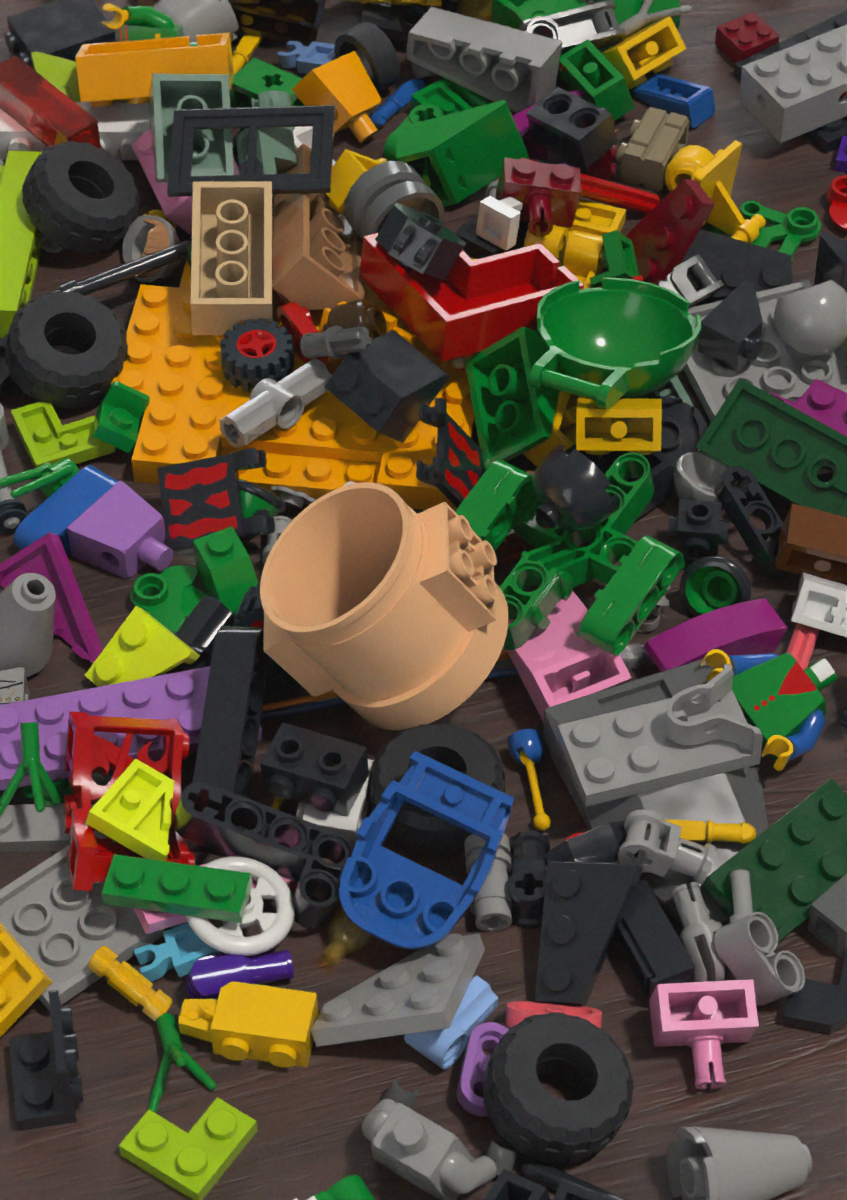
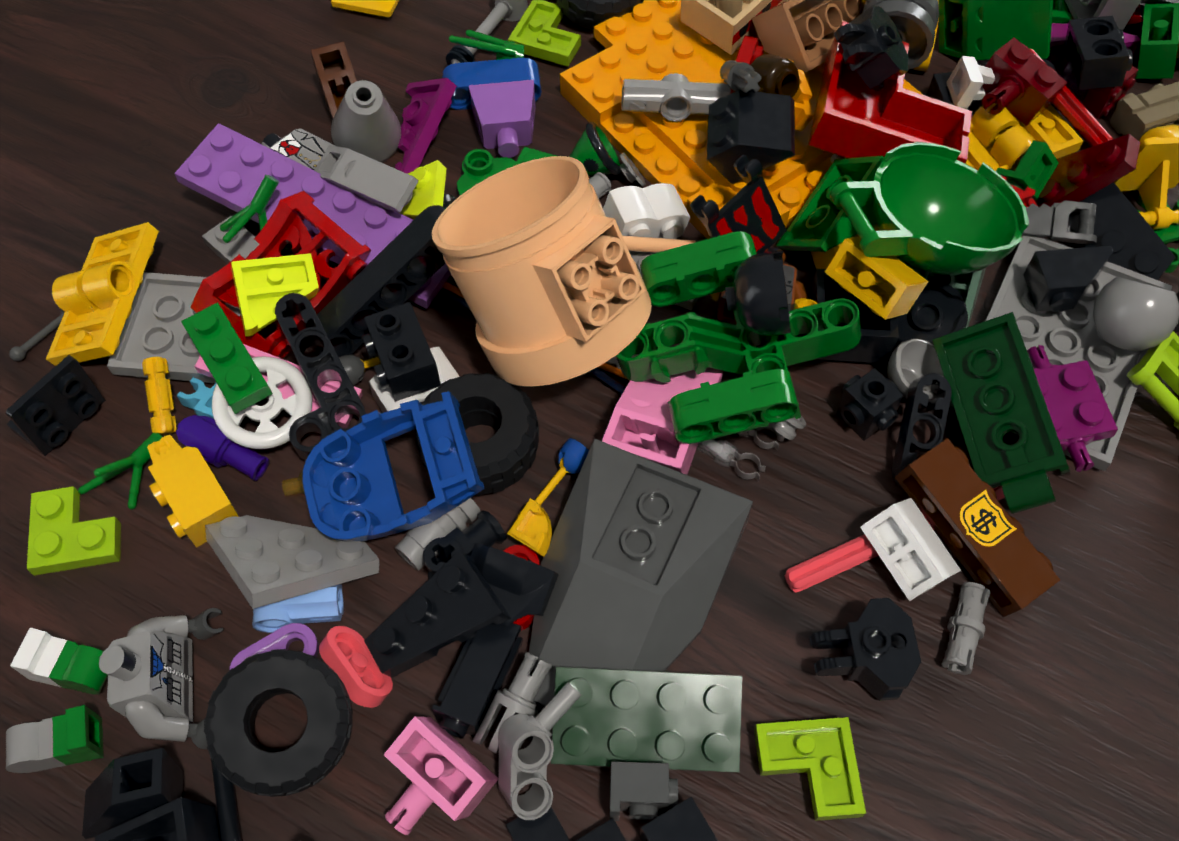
camera: 45 degrees right, 10 degrees up
(92, 666) = (367, 178): none -> light grey slope
(119, 416) = (583, 42): green bracket -> none
(207, 498) = (567, 124): flag -> none
(256, 353) = (701, 55): black wheel -> none
(563, 817) = (533, 528): none -> yellow tile
(661, 742) = (637, 535): light grey plate -> none
(663, 848) = (546, 615): light grey connector -> none
(713, 584) = (832, 445): green hat -> none
(728, 832) = (595, 627): yellow piece -> none
(734, 629) = (792, 493): magenta slope -> none
(778, 699) = (773, 578): torso -> none

